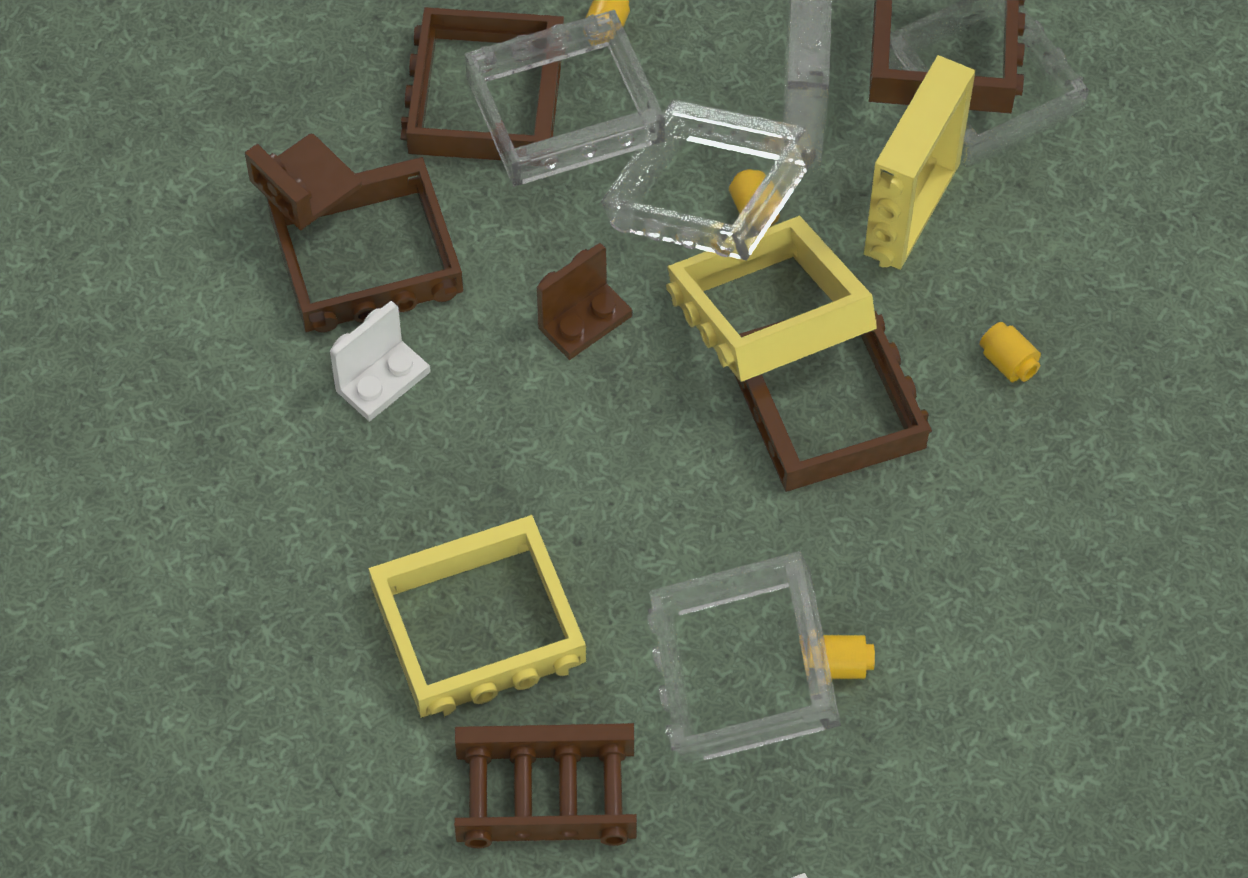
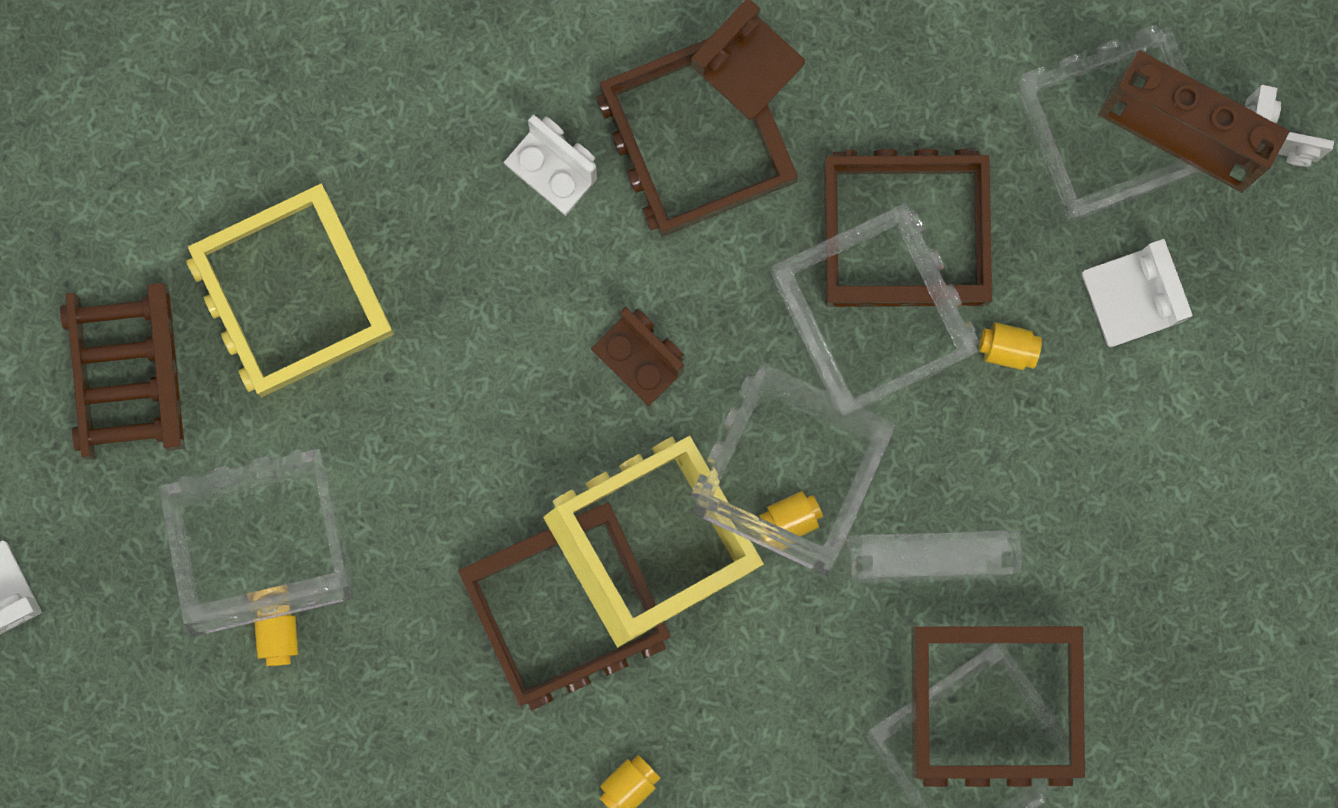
camera: 80 degrees right, 25 degrees up
(923, 159) = (808, 679): light yellow window -> none

